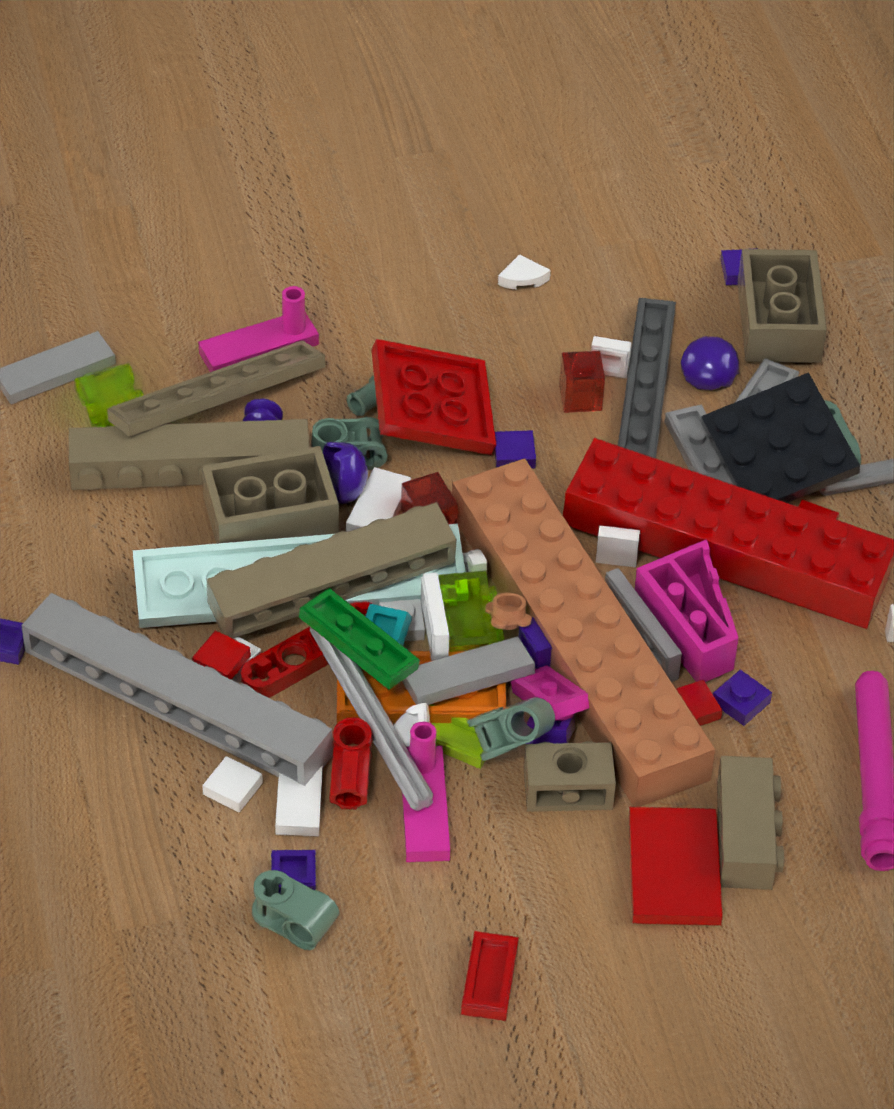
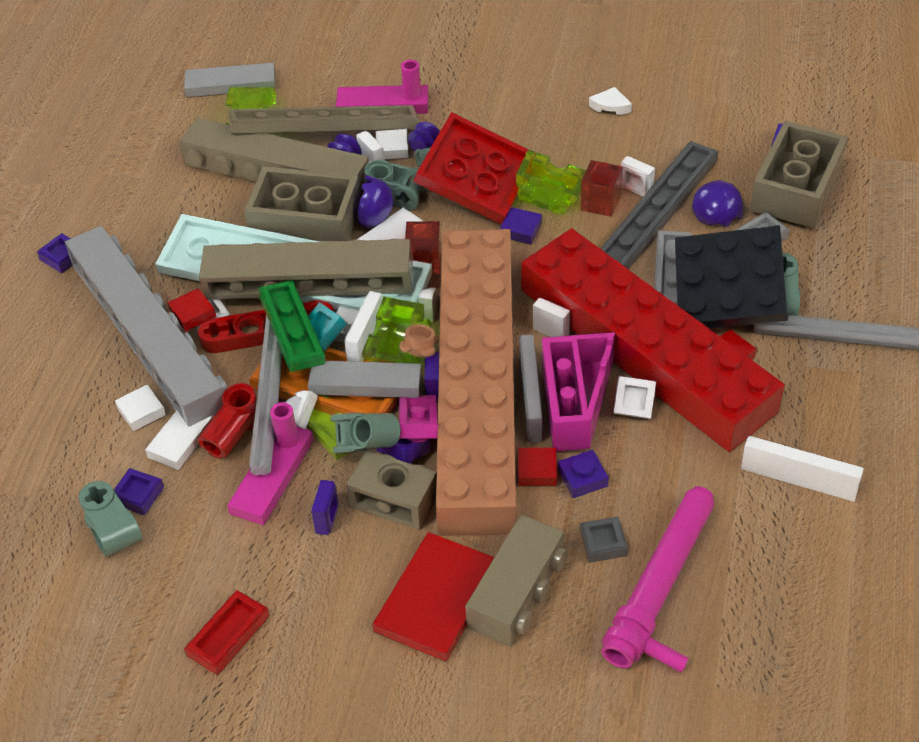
camera: 30 degrees right, 0 degrees up
(296, 407) = (370, 146): none -> white tile
(307, 394) = (394, 143): none -> white tile
(346, 376) = (423, 135): none -> dark purple wheel
(512, 818) = (325, 507): none -> dark purple tile
(525, 394) = (546, 184): none -> clear neon green cylinder
(751, 602) = (634, 397): none -> white plate
(800, 755) = (603, 539): none -> dark grey tile

